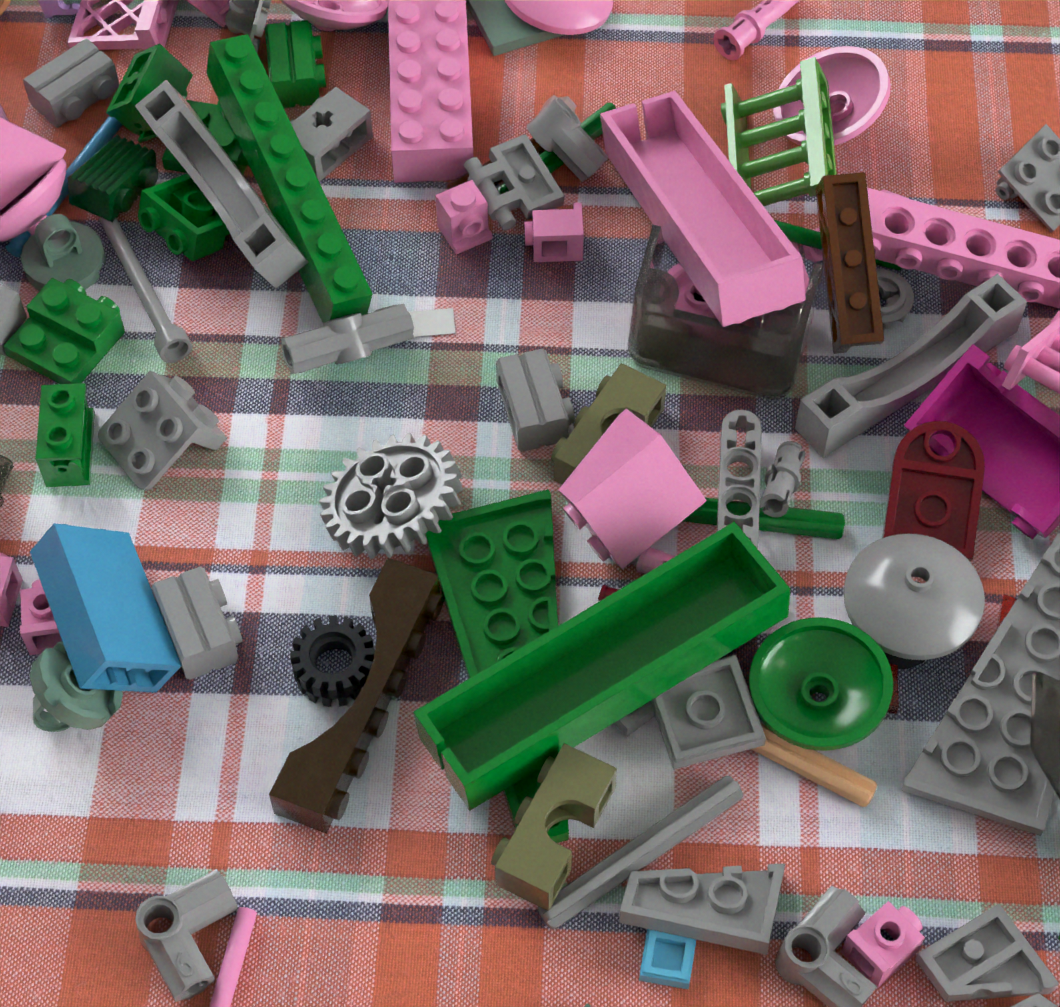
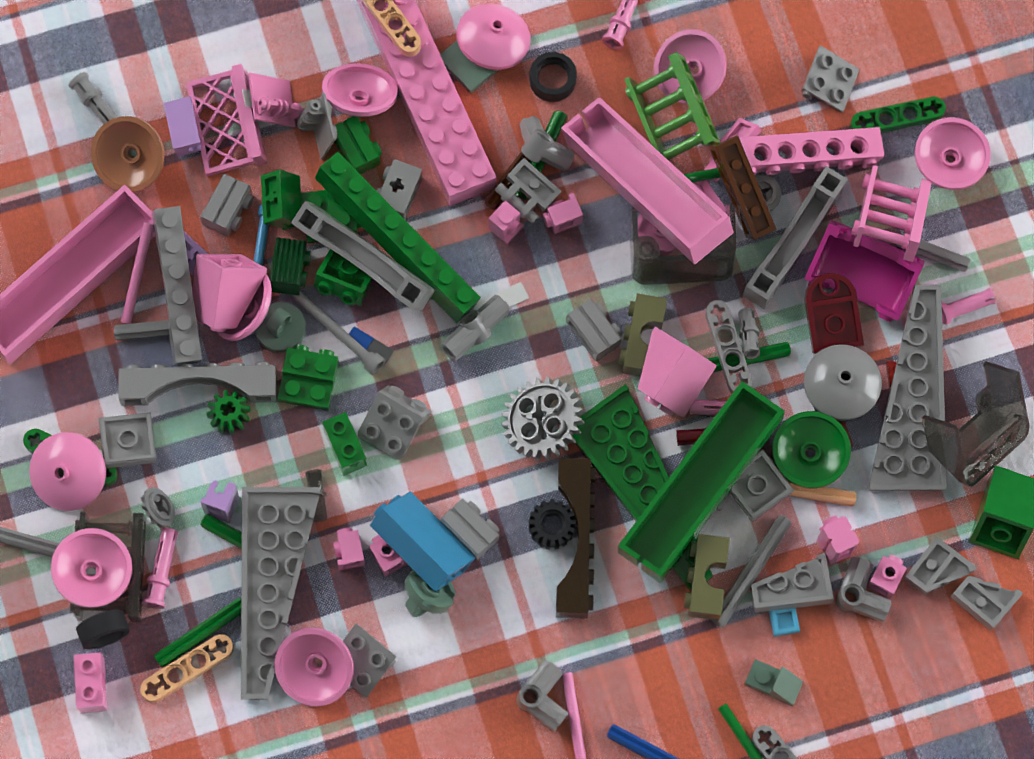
camera: 25 degrees left, 15 degrees up
(182, 317) = (371, 344): none -> sticker
(621, 83) = (552, 58): none -> black tyre
(812, 842) = (837, 539): none -> bright pink brick

